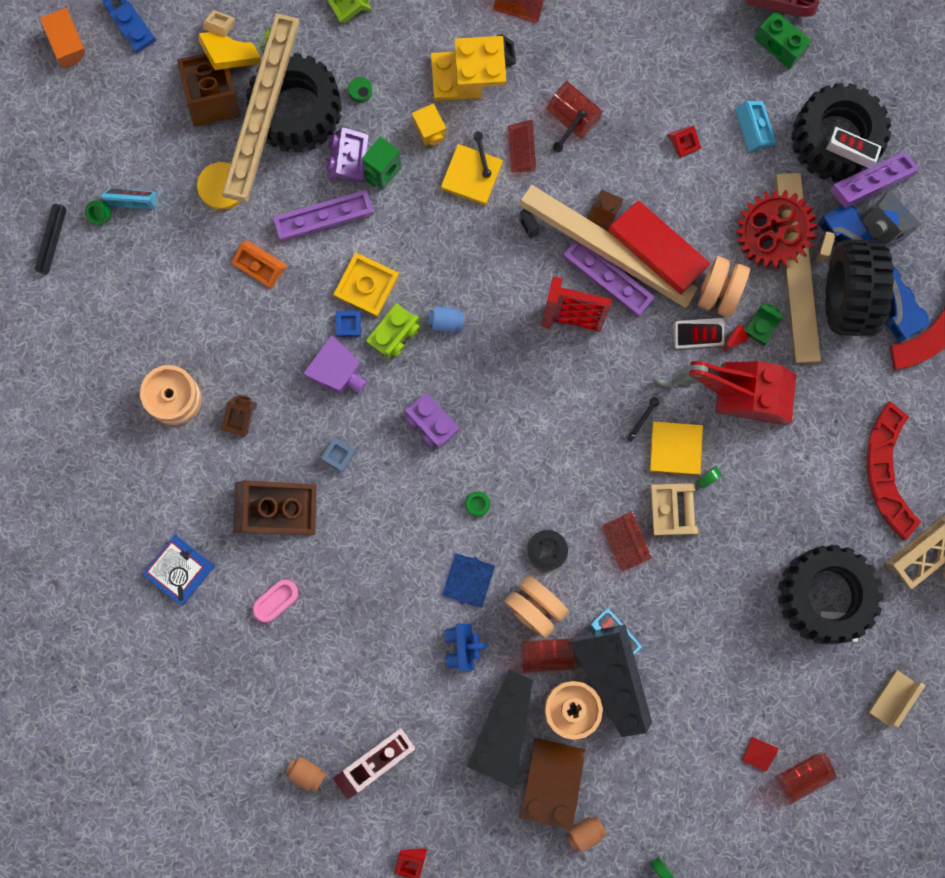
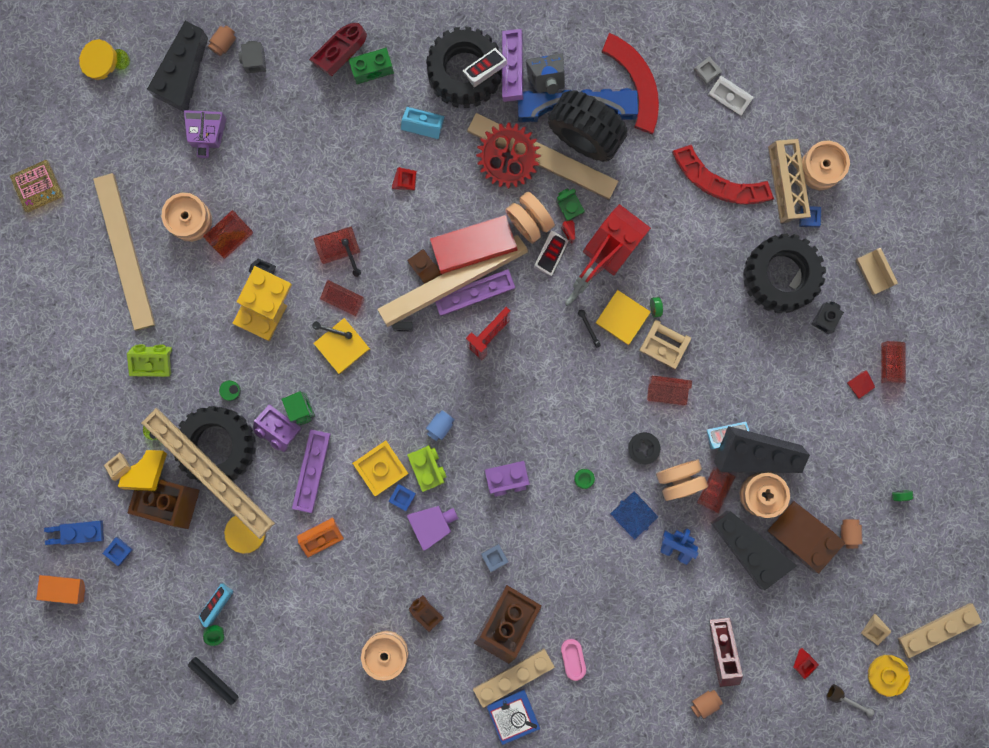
camera: 60 degrees left, 5 degrees up
(132, 72) = (117, 551): none -> blue tile
(220, 547) = (513, 678): none -> tan plate
(429, 125) = (288, 356): yellow brick -> none
(802, 672) = (822, 321): none -> black brick
(825, 247) = (540, 129): tan tile -> none
(913, 596) = (814, 220): none -> blue tile

